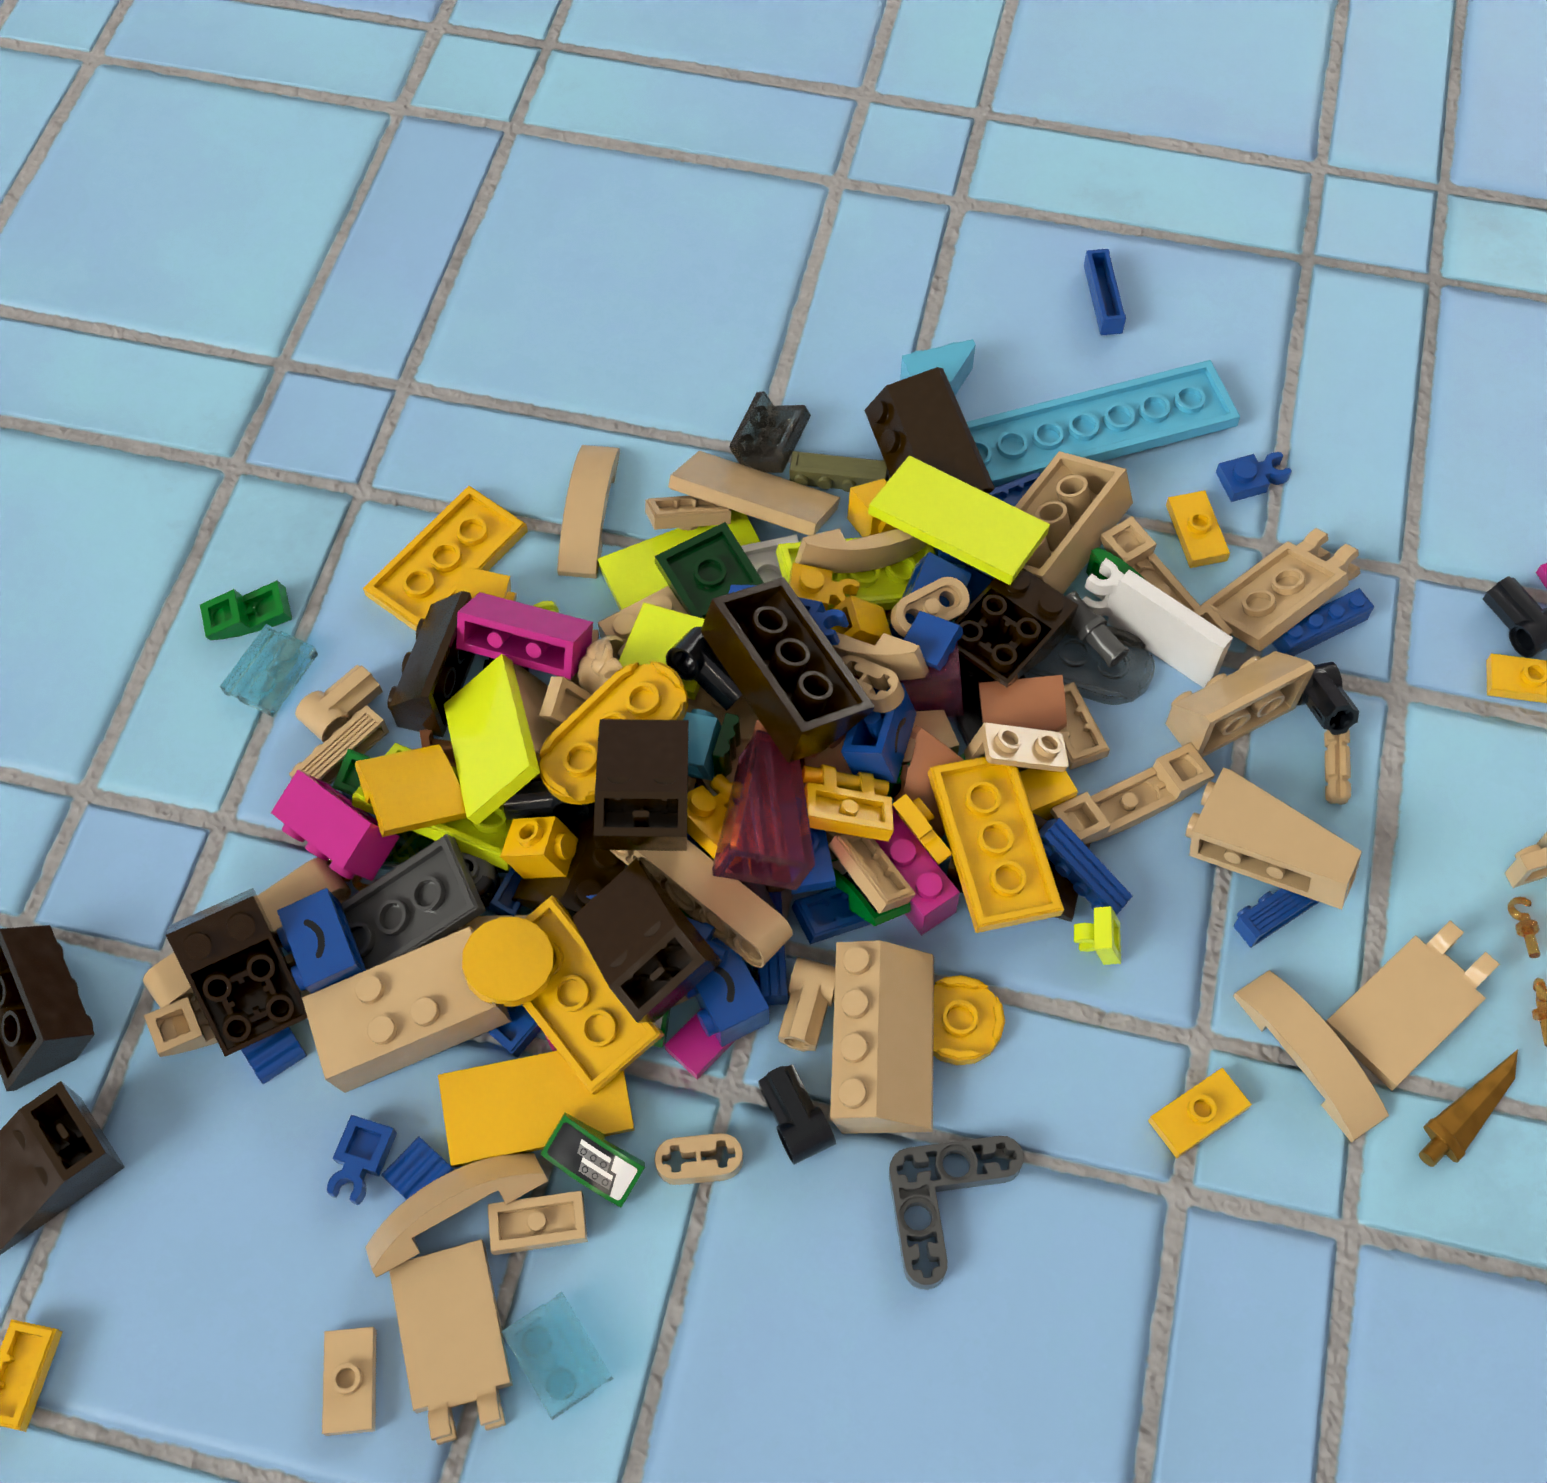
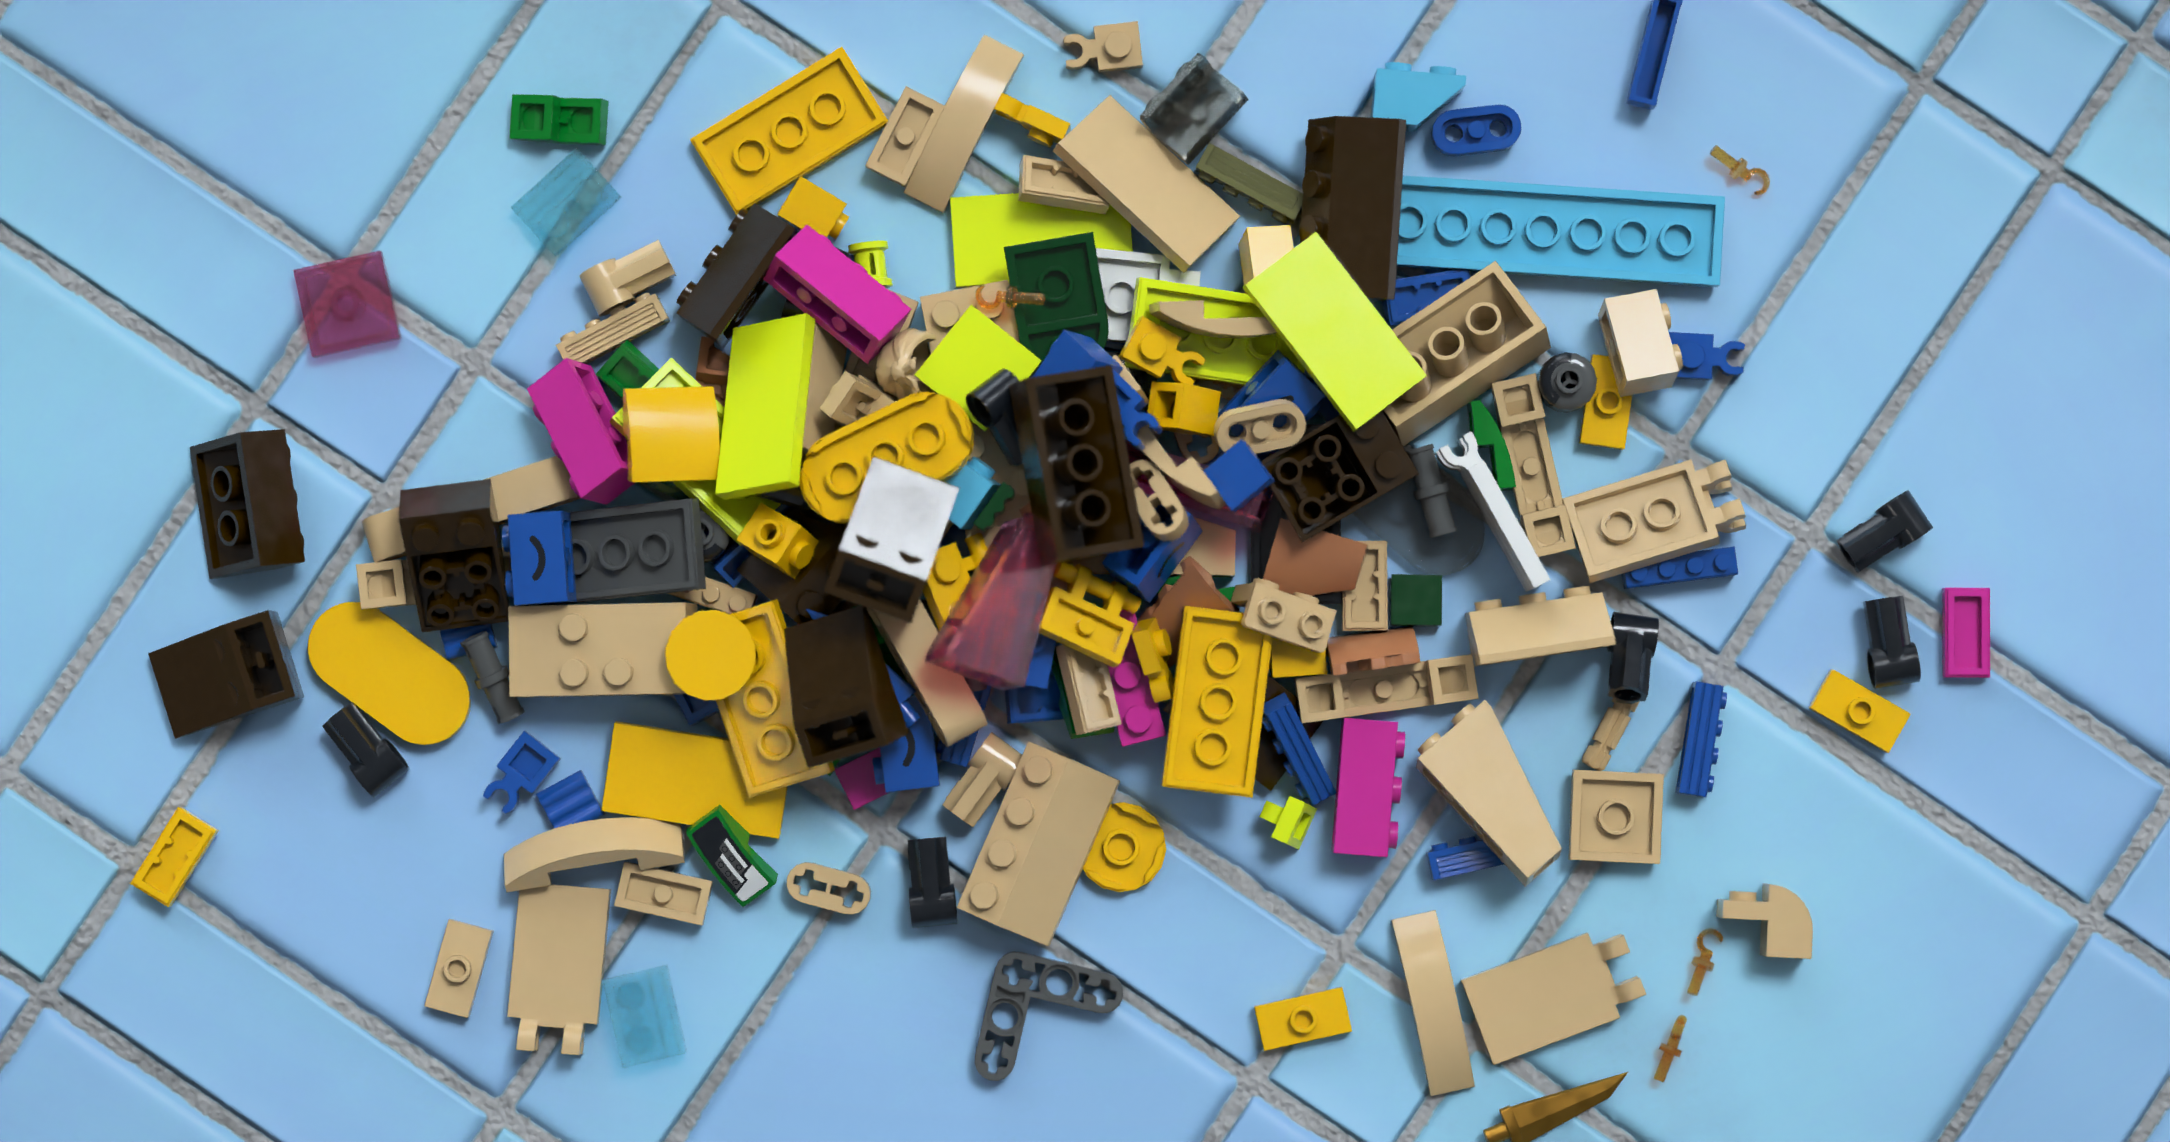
camera: 20 degrees right, 25 degrees up
(90, 811) = (347, 304): none -> clear pink plate
(203, 1196) = (372, 759): none -> black piece
(205, 1114) = (389, 673): none -> yellow tile
(306, 1077) = (491, 676): none -> dark grey pin
(542, 529) = (904, 136): none -> tan plate
(647, 481) = (1041, 125): none -> yellow plate
(676, 587) = (1011, 298): none -> clear orange hand
(686, 420) = (1114, 48): none -> tan plate
(992, 384) = (1475, 130): none -> blue plate
(1111, 768) = (1372, 650): none -> nougat slope
(1121, 723) = (1416, 600): none -> dark green piece
(1160, 885) = (1367, 787): none -> dark pink brick
(1161, 515) = (1554, 392): none -> dark grey head
(1201, 470) = (1639, 342): none -> brick
(1209, 346) = (1739, 168): none -> clear orange hand
(1386, 828) = (1616, 816): none -> tan plate
(1416, 746) = (1699, 739): none -> blue piece
(1470, 537) = (1893, 526): none -> black piece

